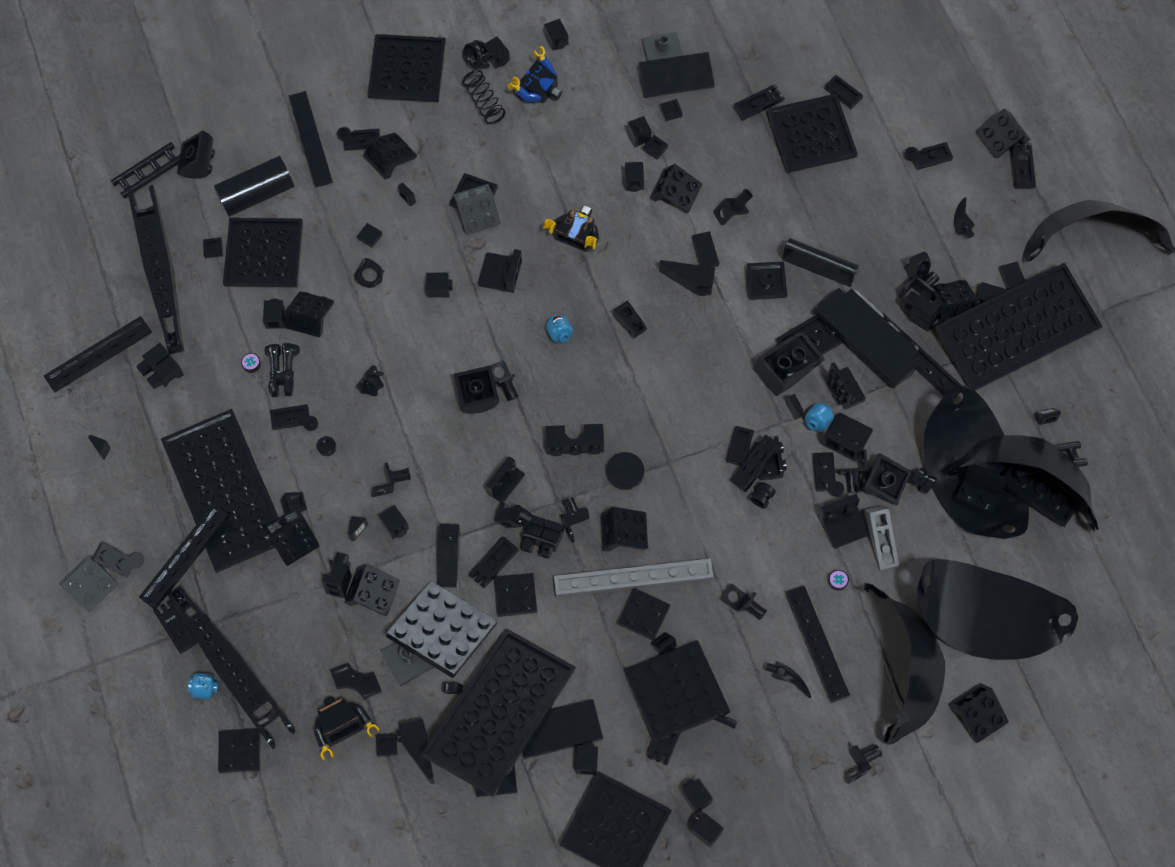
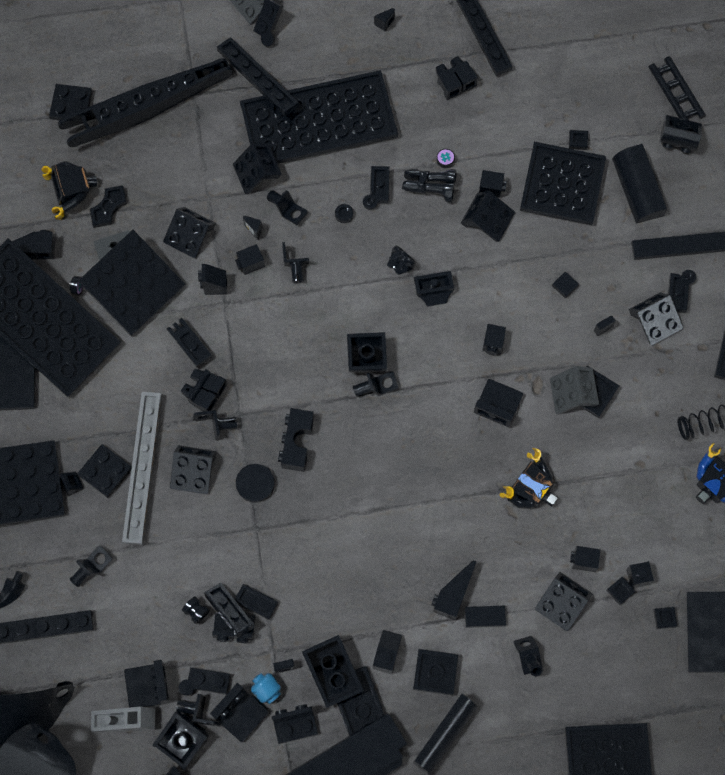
camera: 100 degrees right, 5 degrees up
(158, 266) = (561, 86): black piece -> none
(175, 627) = (195, 60): black hinge -> none
(202, 686) = (133, 77): dark azure head -> none
(292, 500) = (292, 177): black slope -> none
(327, 500) = (286, 206): none -> black bracket
(340, 576) = (205, 202): black hips -> none
(368, 263) = (519, 266): black piece -> none
(386, 745) = (42, 222): black tile -> none
(393, 346) = (434, 288): none -> black slope
(425, 551) = (212, 280): none -> black slope
(448, 555) = (207, 303): black slope -> none
(504, 480) = (268, 366): black bracket -> none
(512, 516) = (228, 363): black leg -> none
(515, 594) = (154, 357): black plate -> none
(558, 328) = (421, 447): dark azure head -> none
(629, 319) = (416, 519): black leg -> none
(758, 102) = (658, 715): black hinge -> none
(759, 322) = (387, 651): none -> black slope
(838, 580) = (91, 665): tile -> none

